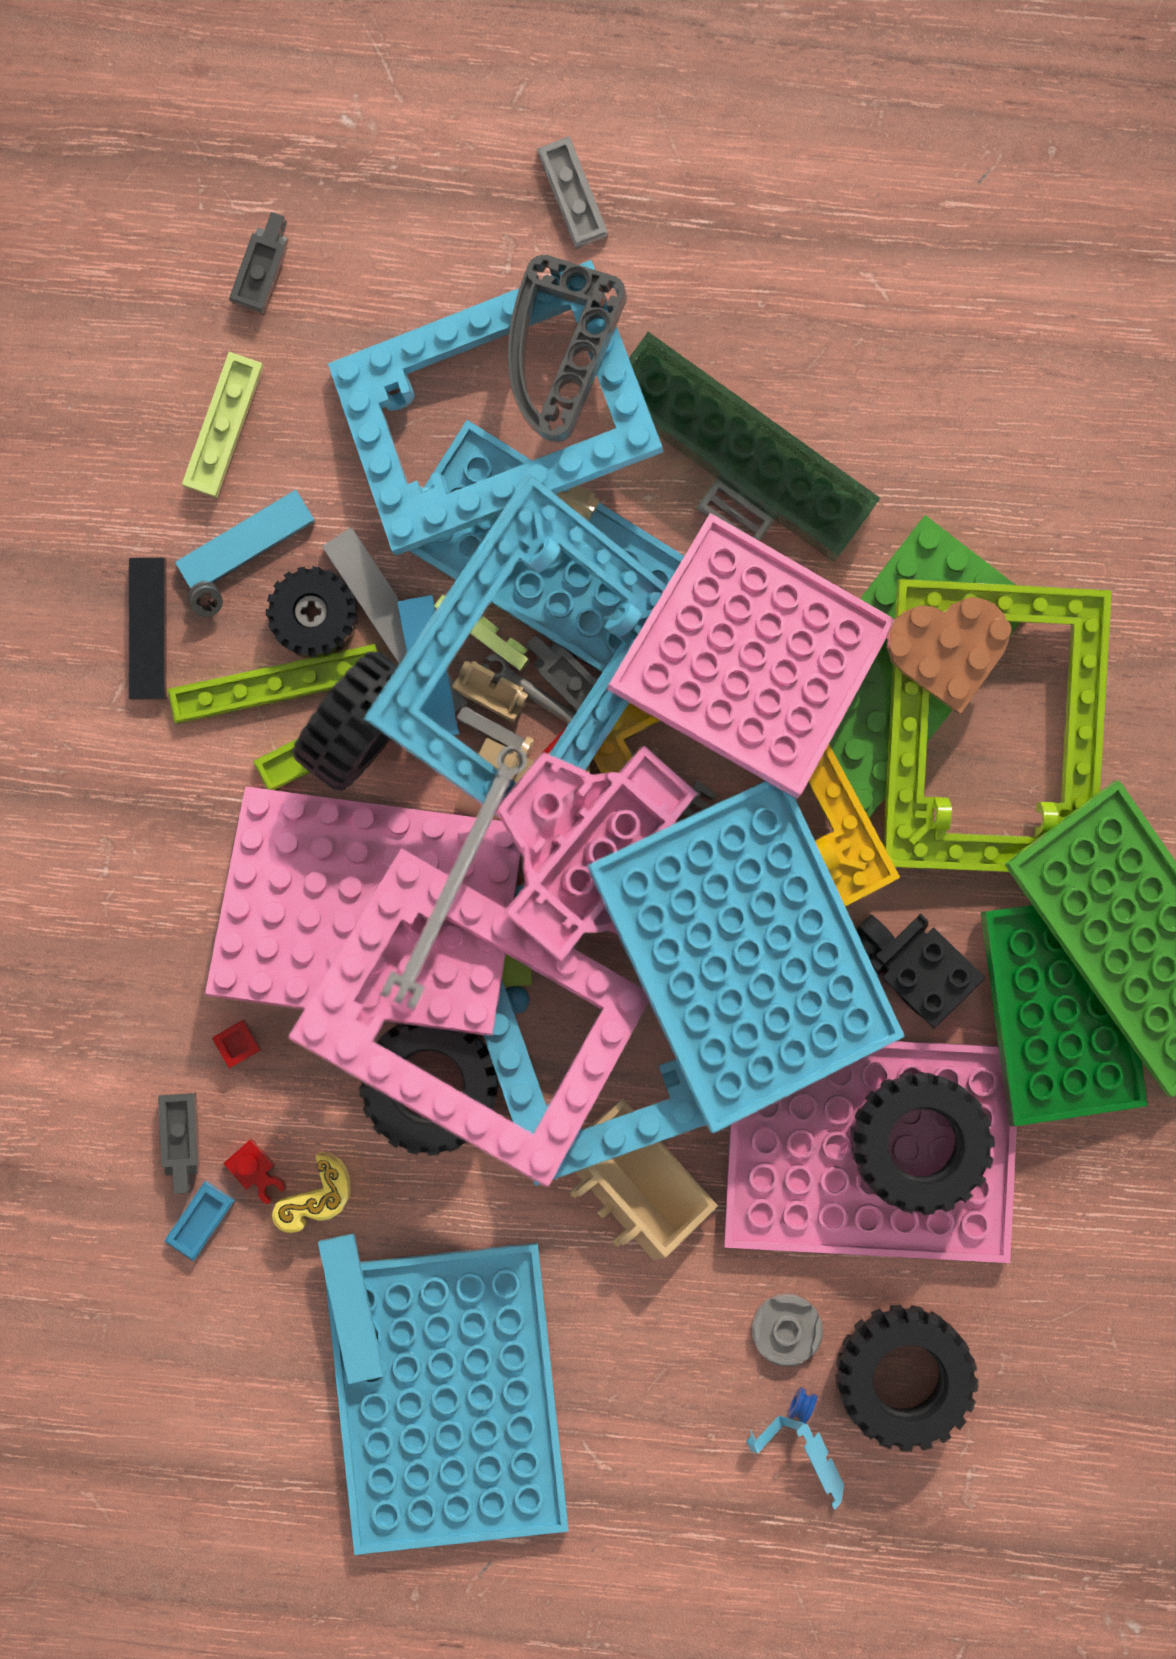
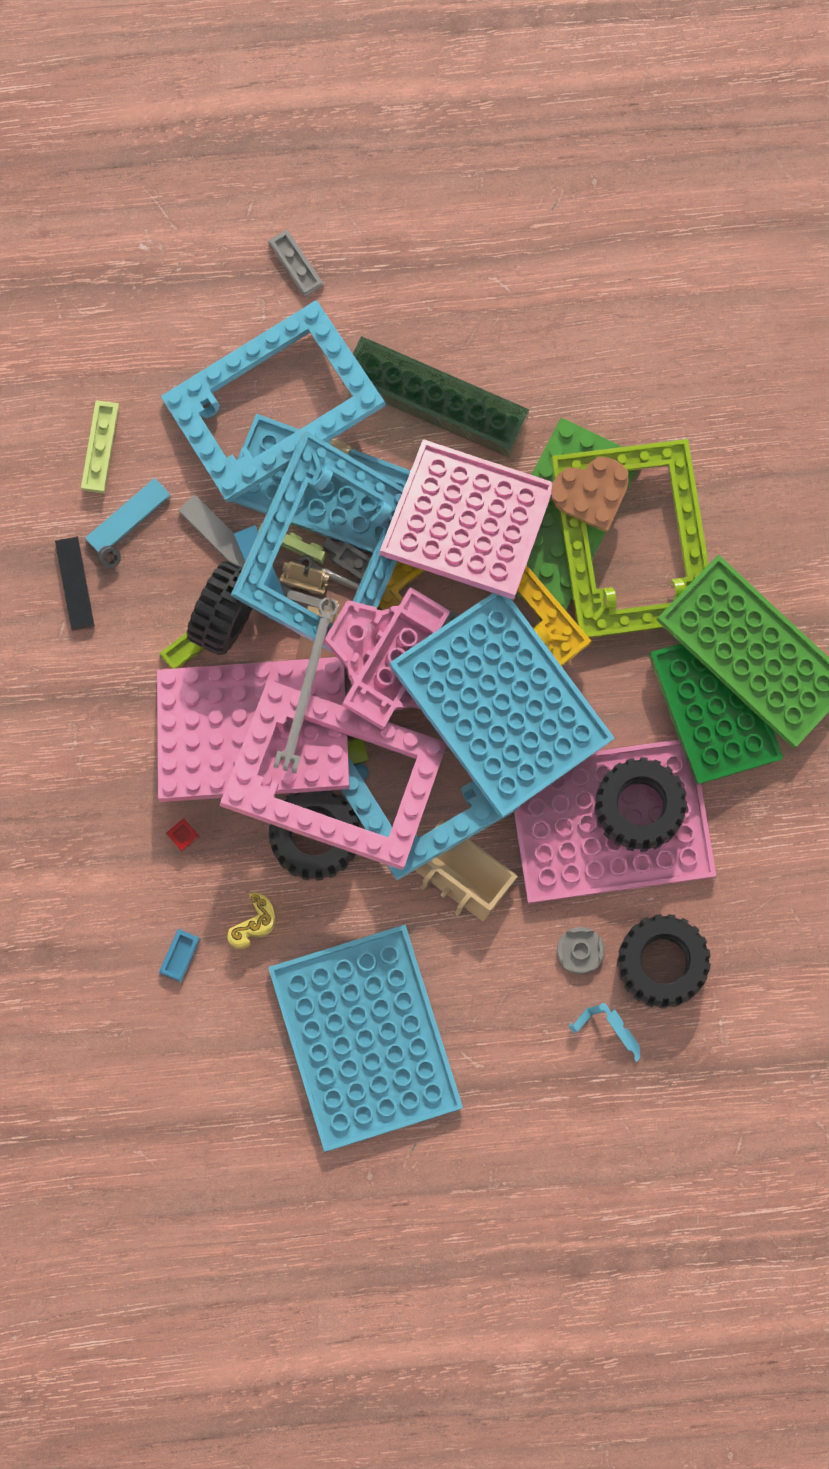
camera: 10 degrees left, 10 degrees down
(179, 1138) = (156, 903): dark grey hinge -> none
(251, 1167) = (207, 914): red plate -> none
(260, 265) = (106, 344): dark grey hinge -> none
(262, 686) = (152, 606): lime tile -> none
(327, 630) = (193, 559): black bush -> none
(351, 1308) = (291, 988): medium azure tile -> none
(597, 344) = (323, 323): dark grey beam -> none
(741, 501) = (461, 440): light grey tile -> none
(802, 1405) = (600, 995): blue bush -> none
(920, 967) = (617, 698): black plate -> none

